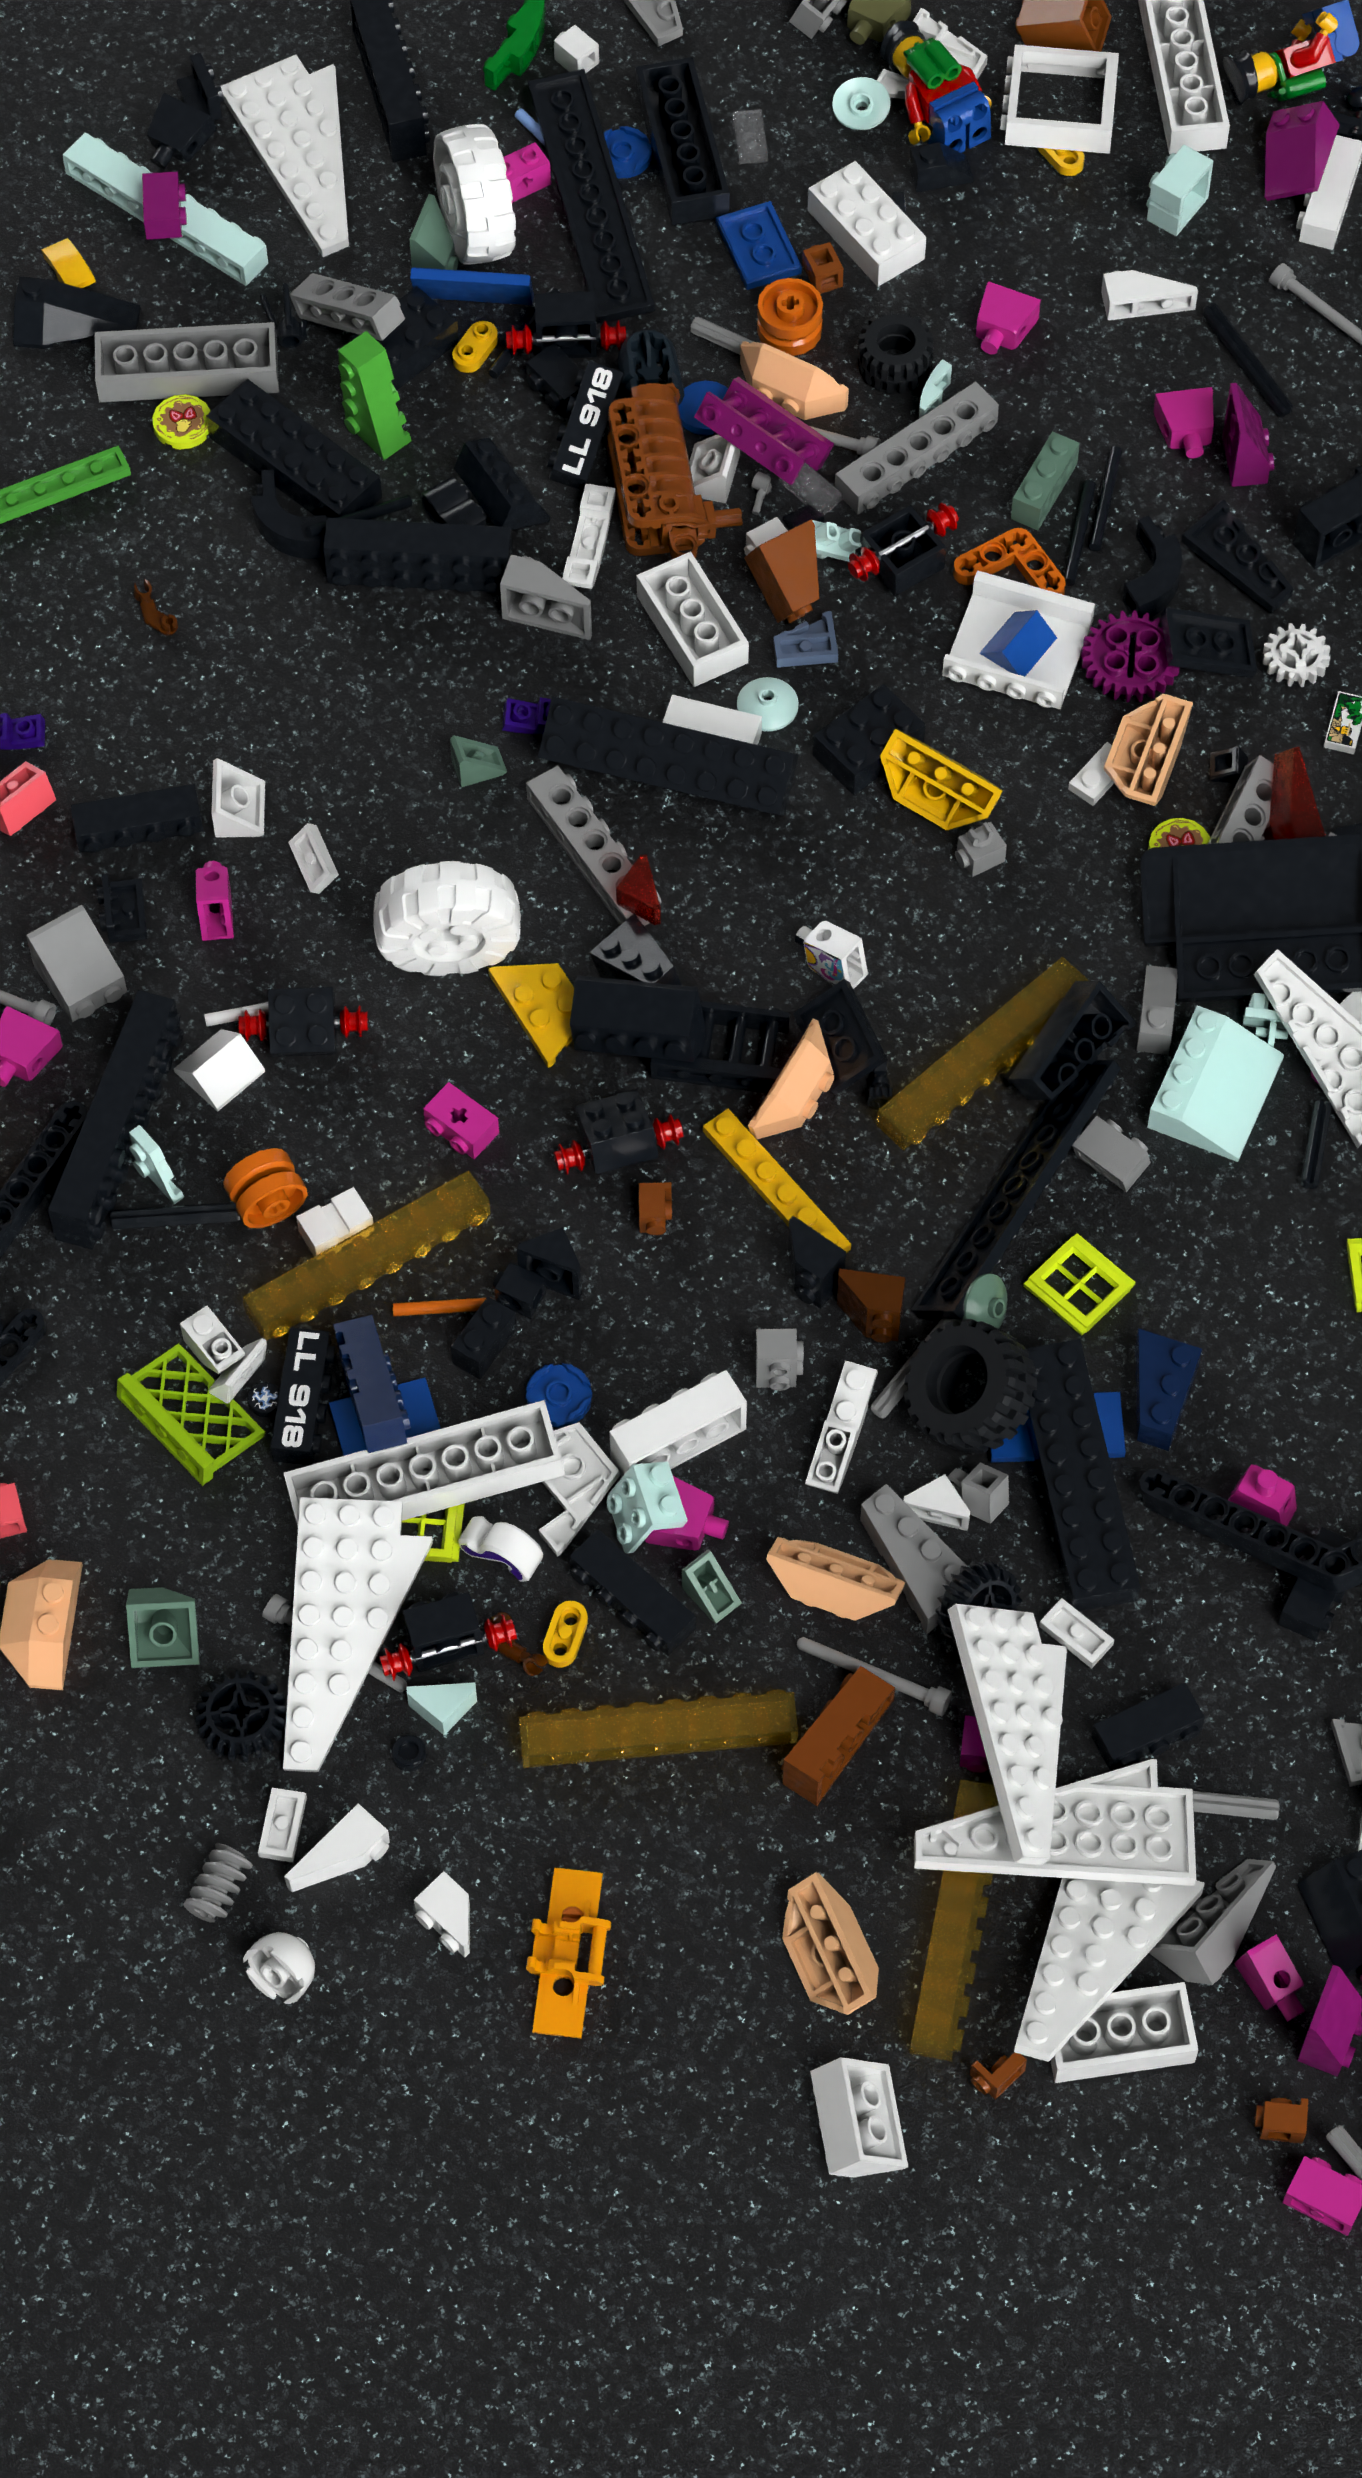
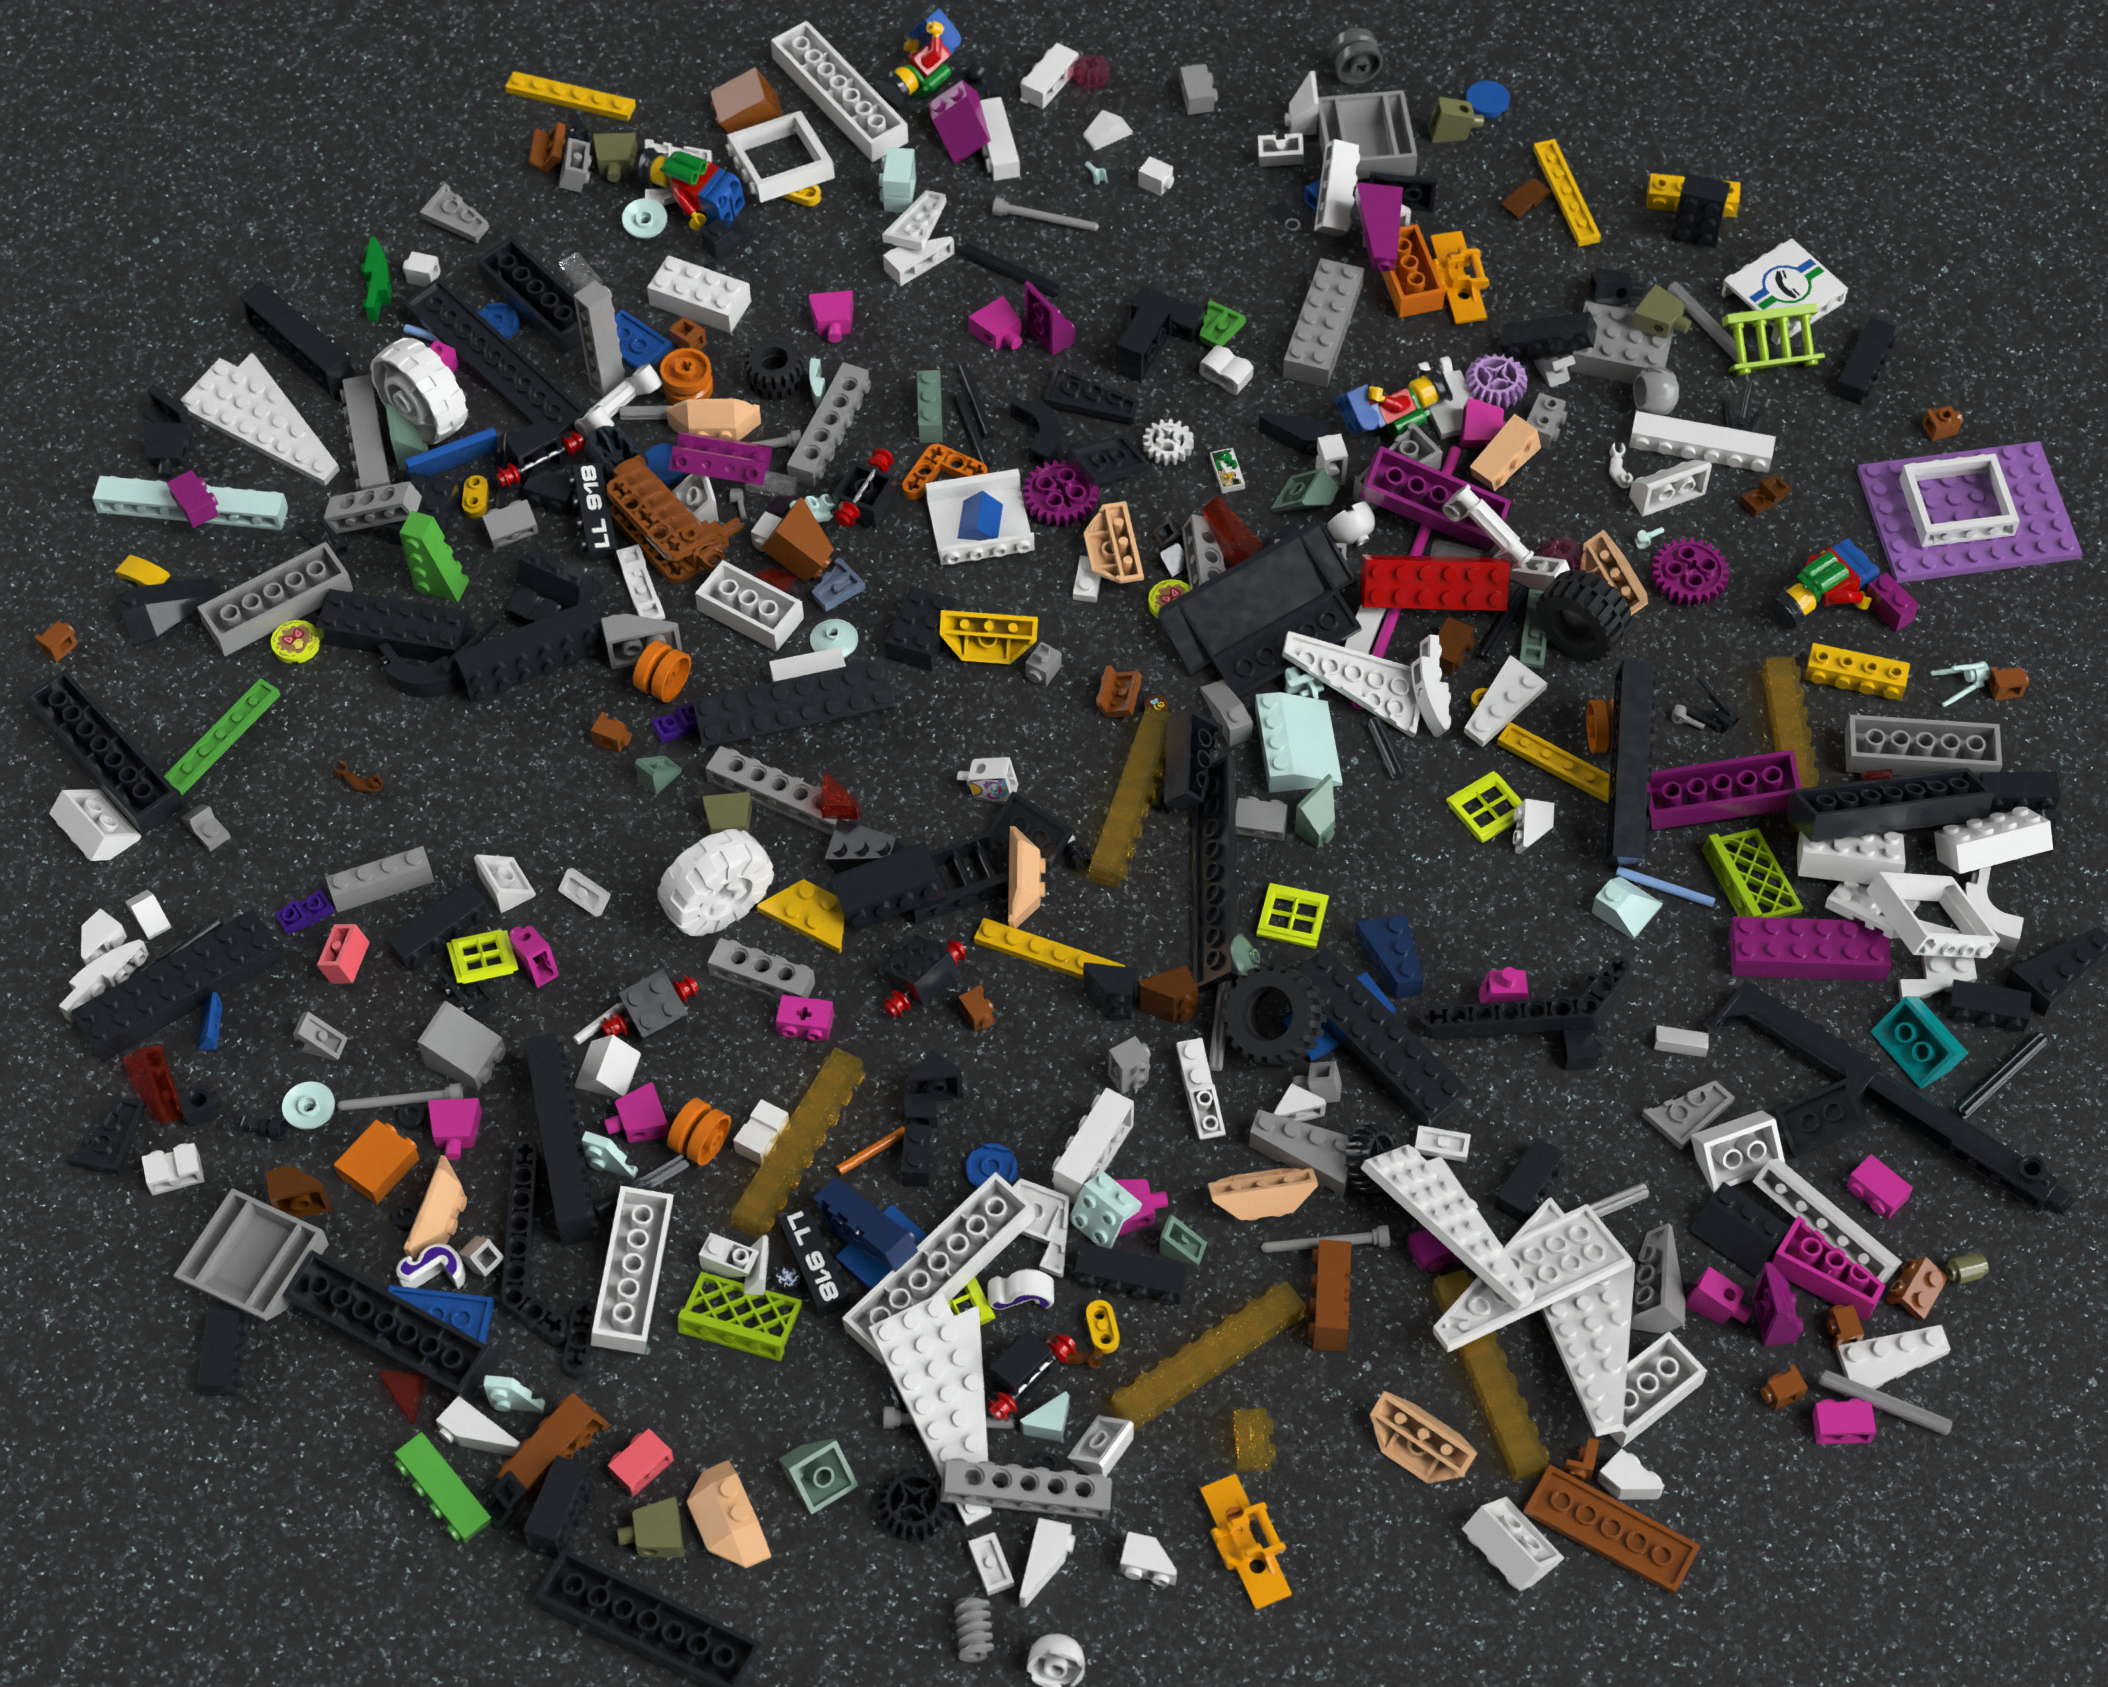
camera: 30 degrees left, 5 degrees down
(103, 1302) = (632, 1270): none -> white brick
(107, 734) = (380, 879): none -> light grey brick
(134, 867) = (460, 961): none -> neon yellow piece
(218, 1136) = (639, 1116): none -> dark pink torso
(371, 1783) = (1013, 1496): none -> light grey brick
(397, 215) = (366, 433): none -> light grey brick
(420, 1006) = (746, 974): none -> light grey brick
(451, 692) = (610, 733): none -> dark orange brick
(481, 1764) = (1102, 1445): none -> white slope
(489, 396) = (510, 523): none -> light grey brick
(521, 850) = (728, 811): none -> olive torso
(546, 648) = (662, 671): none -> orange wheel
(646, 1847) = (1252, 1440): none -> clear yellow brick
(703, 225) = (599, 337): none -> light grey brick
(733, 298) = (641, 382): none -> white piece
(743, 604) = (777, 578): none -> clear red slope
(980, 2166) = (1612, 1529): none -> dark orange plate
(1034, 2120) = (1629, 1479): none -> white slope
(1045, 923) = (1118, 692): none -> dark orange bracket
(1082, 960) = (1157, 702): none -> tile
(1167, 252) = (917, 222): none -> white wing
(1179, 1179) = (1316, 814): none -> slope
(1211, 799) = (1173, 560): none -> slope

